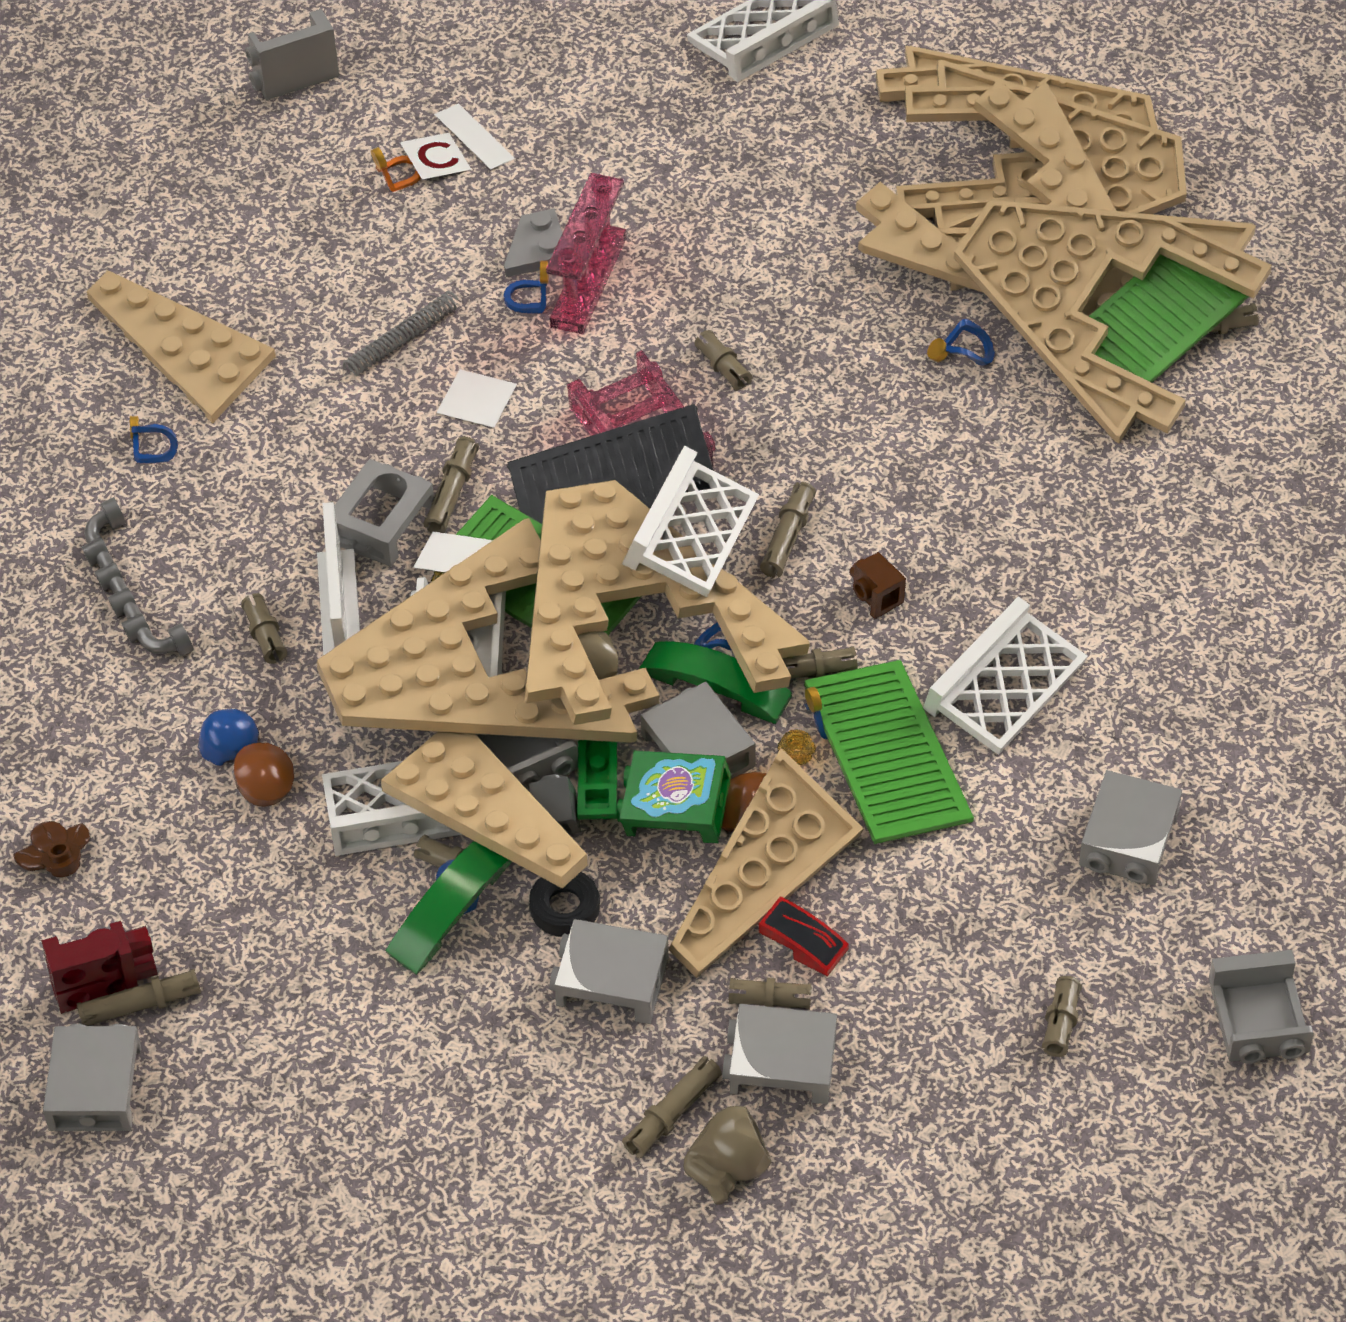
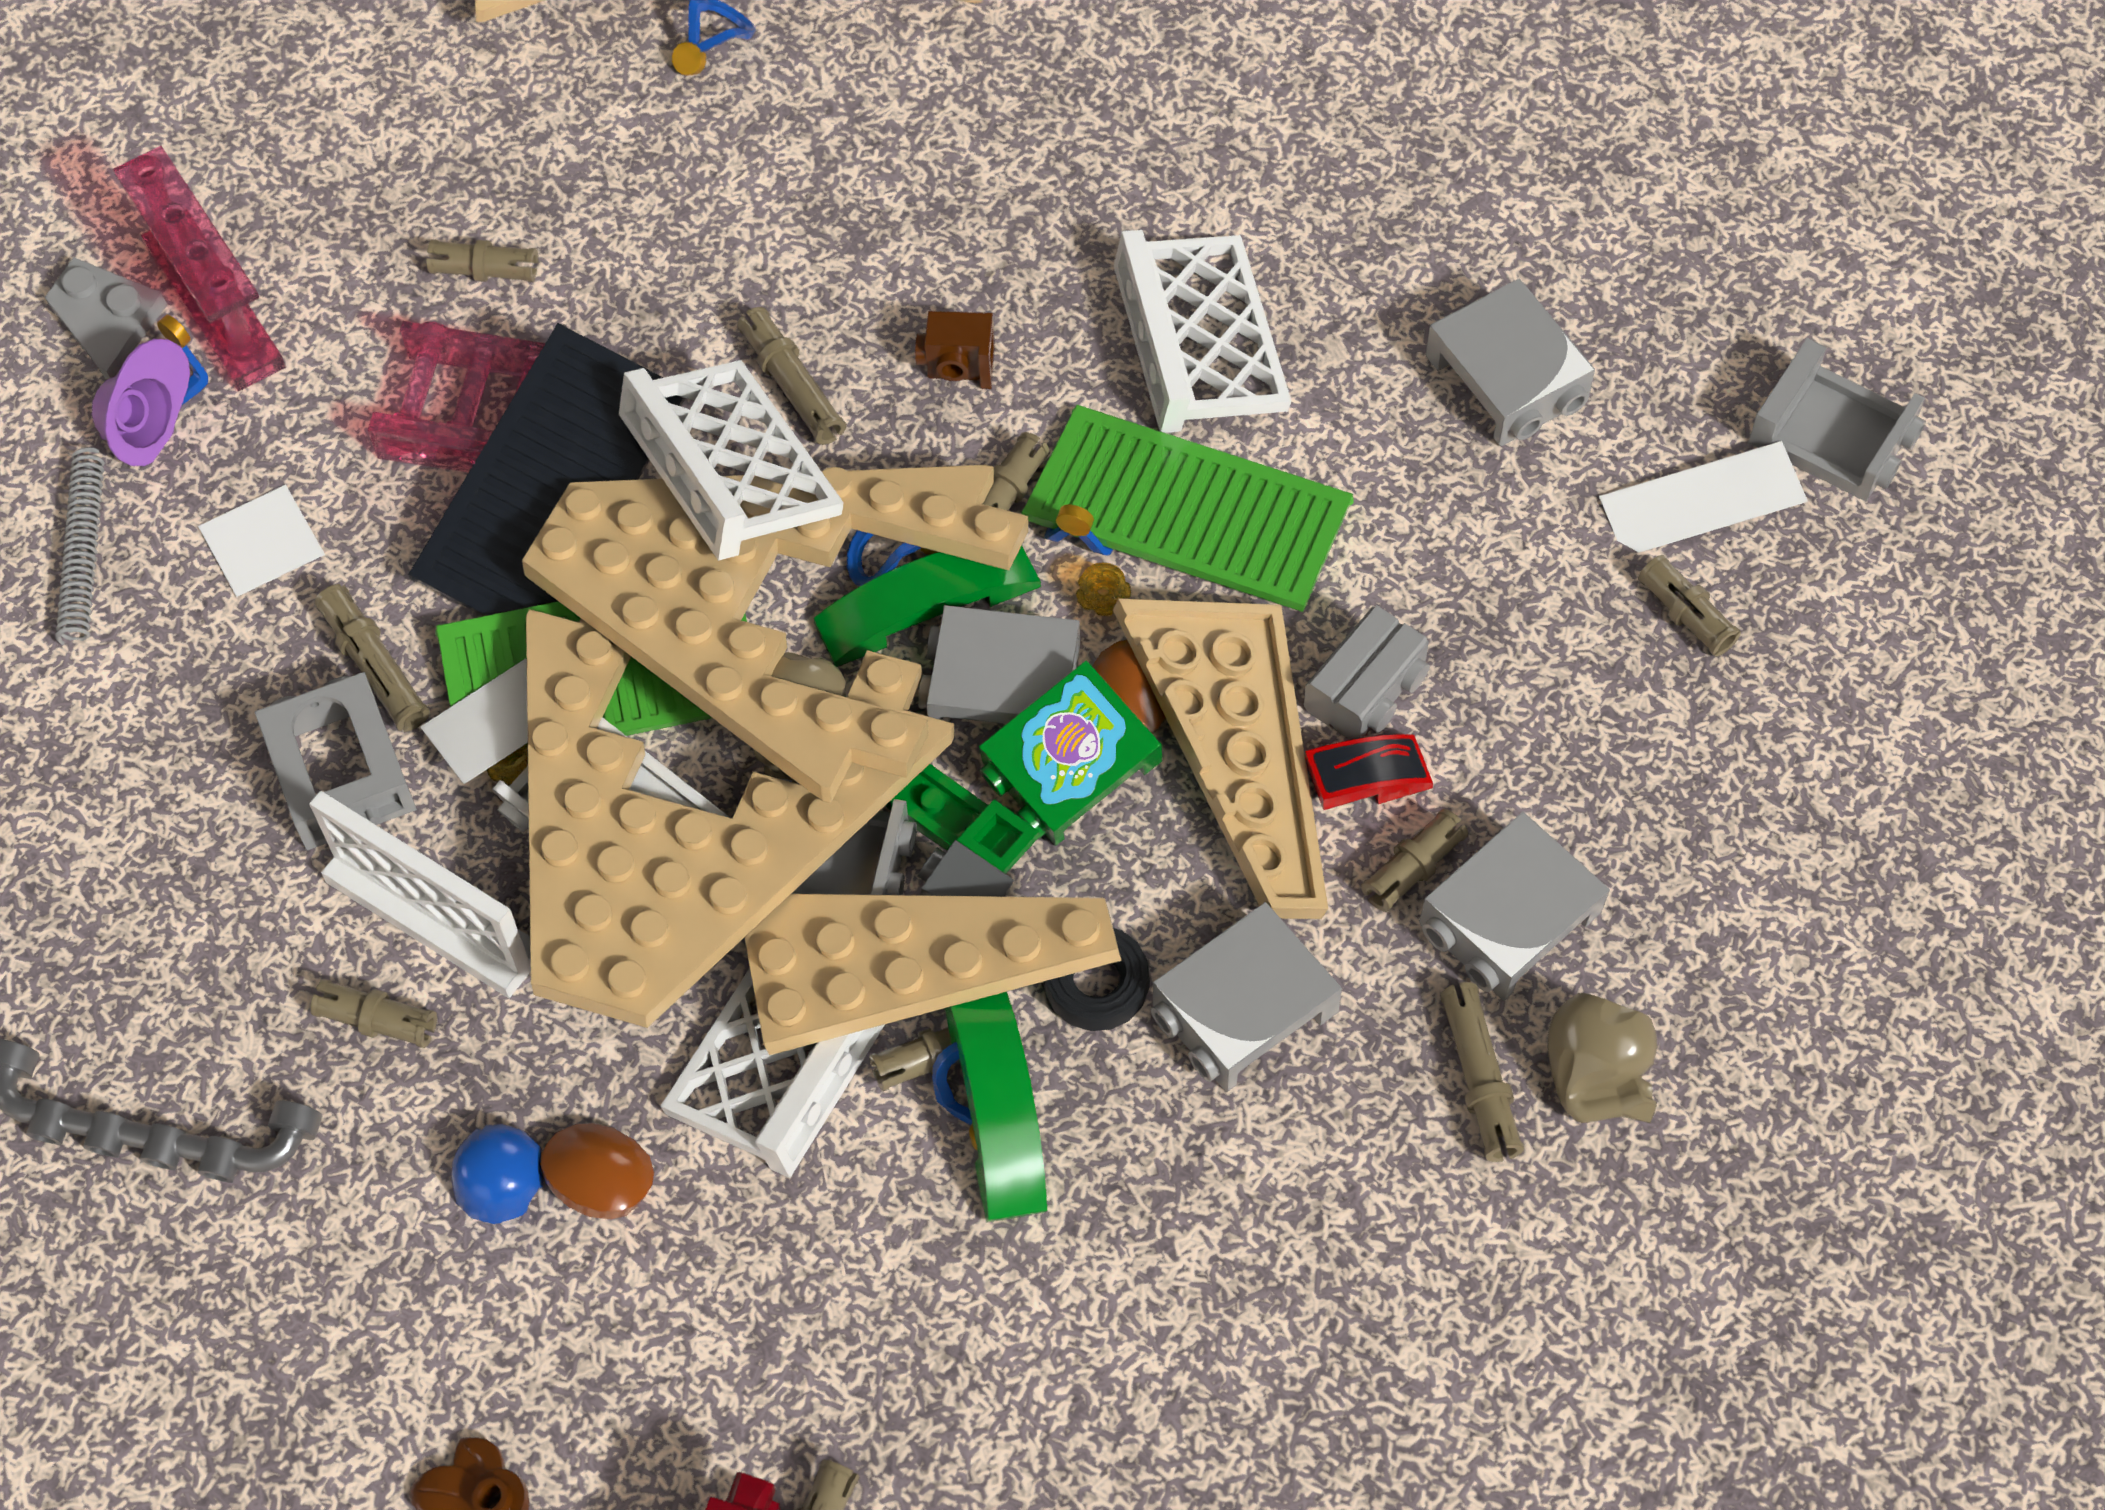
camera: 50 degrees left, 10 degrees up
(496, 292) = (142, 402): none -> medium lavender piece
(860, 895) = (1367, 675): none -> light grey brick
(1144, 980) = (1704, 498): none -> white sticker

